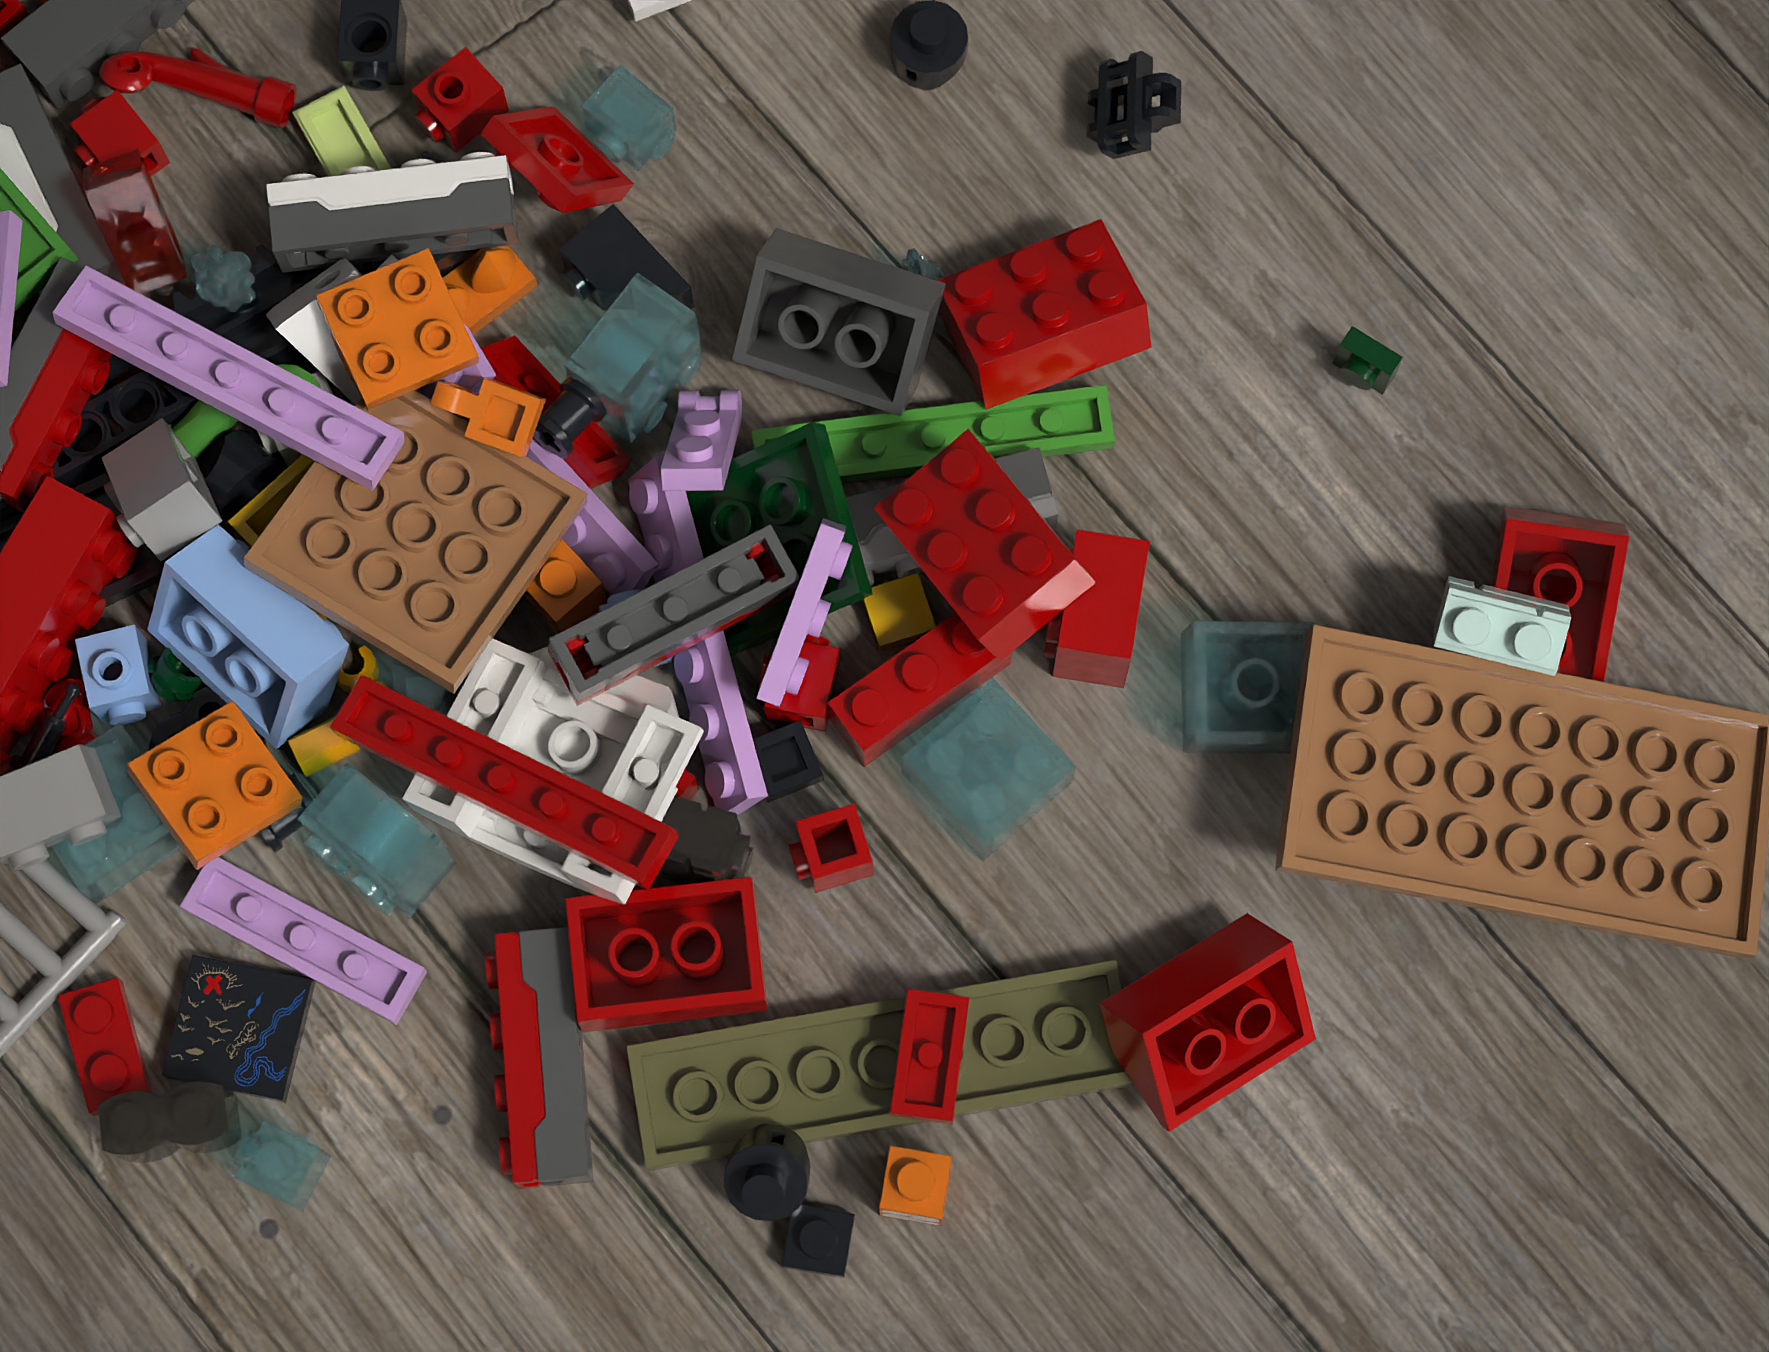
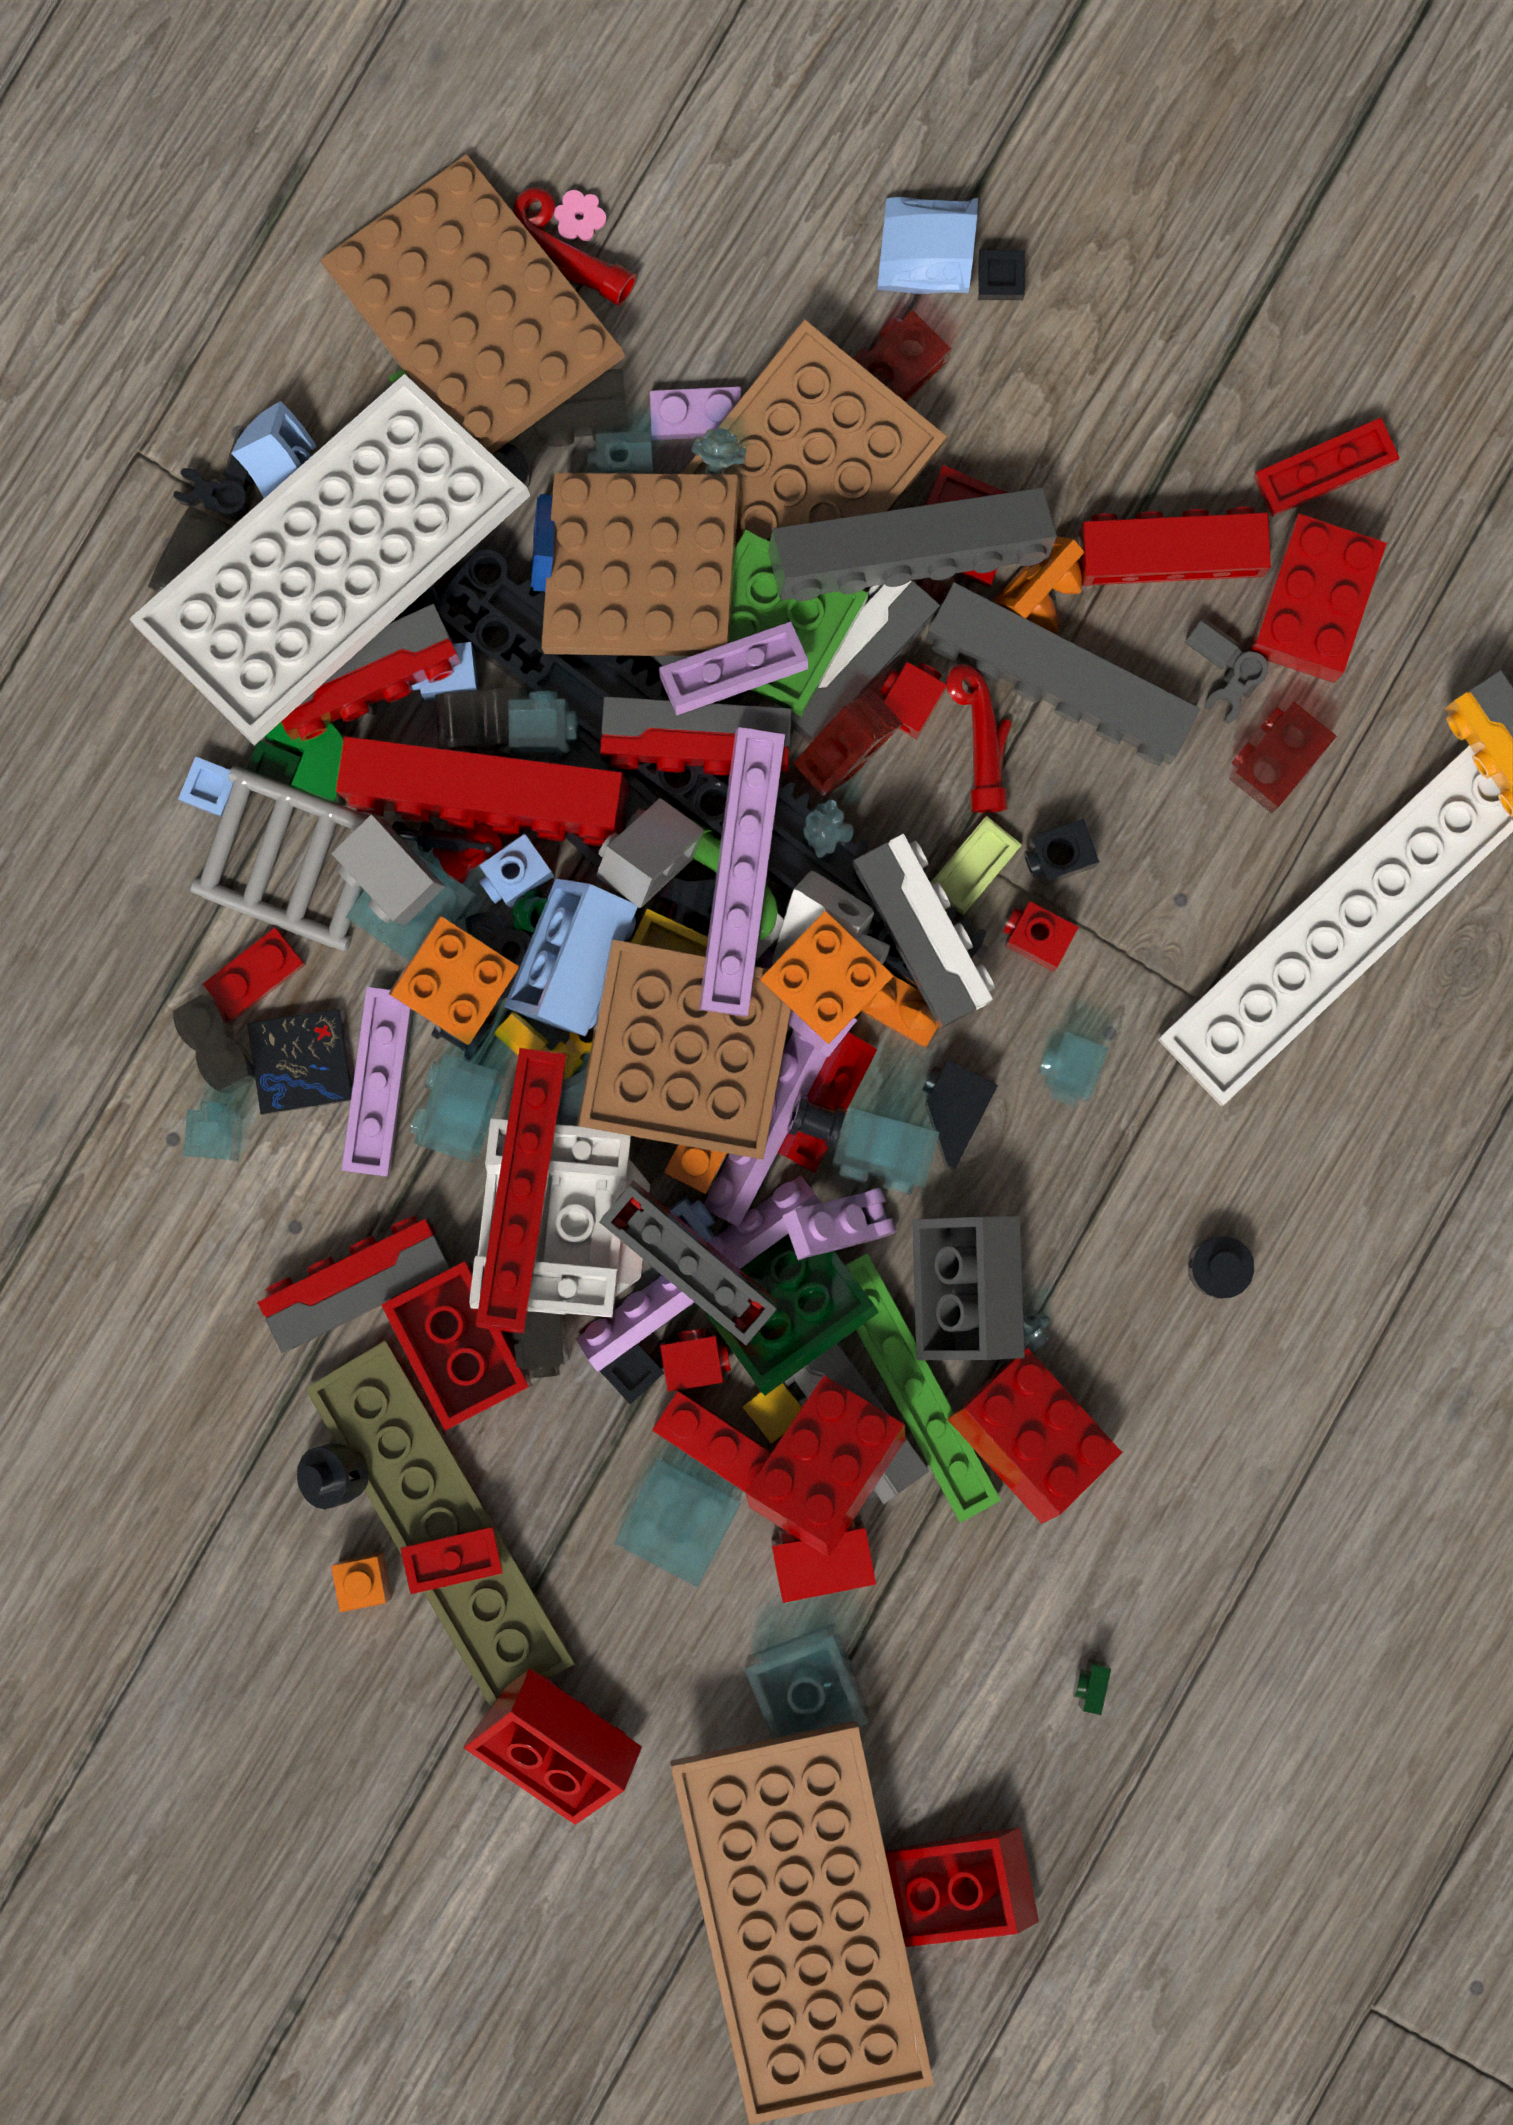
camera: 70 degrees right, 10 degrees up
(497, 415) = (791, 1076): orange plate -> none
(556, 159) = (1017, 1030): red plate -> none
(805, 613) = (728, 1354): lavender plate -> none
(818, 1241) = (302, 1527): black plate -> none
(831, 849) = (576, 1432): red brick -> none
(1139, 115) = (1224, 1448): black piece -> none
(1502, 626) = (917, 1861): light aqua brick -> none

